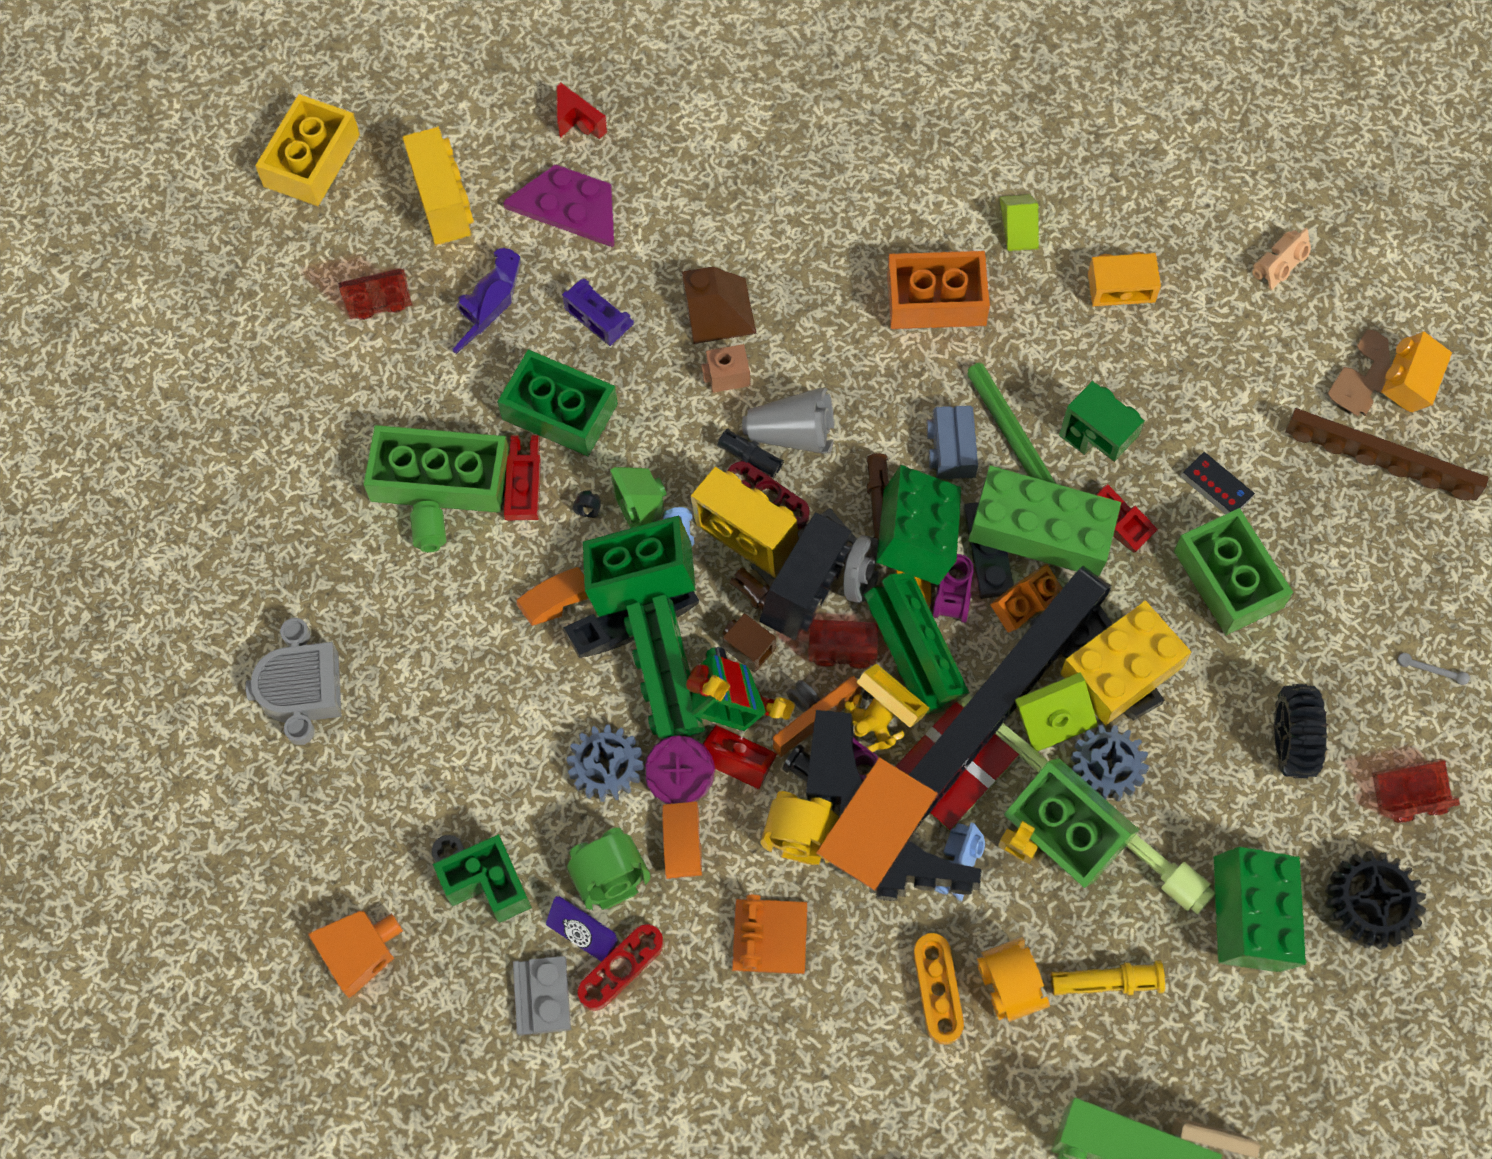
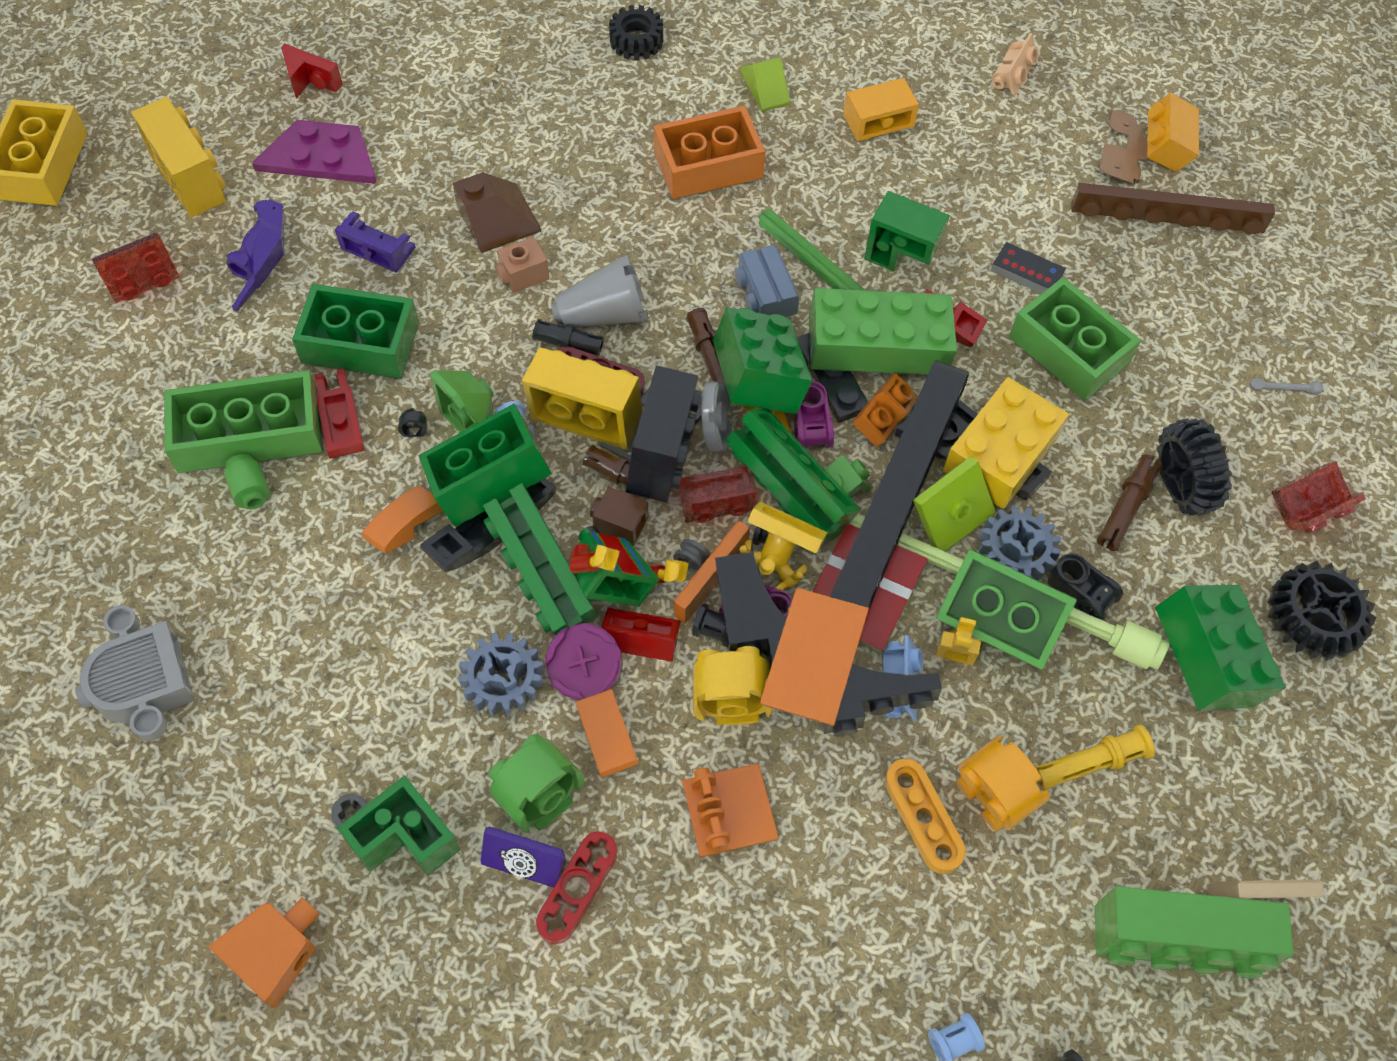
camera: 20 degrees left, 5 degrees down
(541, 996) = (497, 943): light grey plate -> none
(906, 152) = (636, 44): none -> black tyre
(971, 656) = (850, 475): none -> bright green bracket
(1157, 822) = (1086, 586): none -> black piece
(1241, 738) = (1134, 492): none -> reddish brown pin

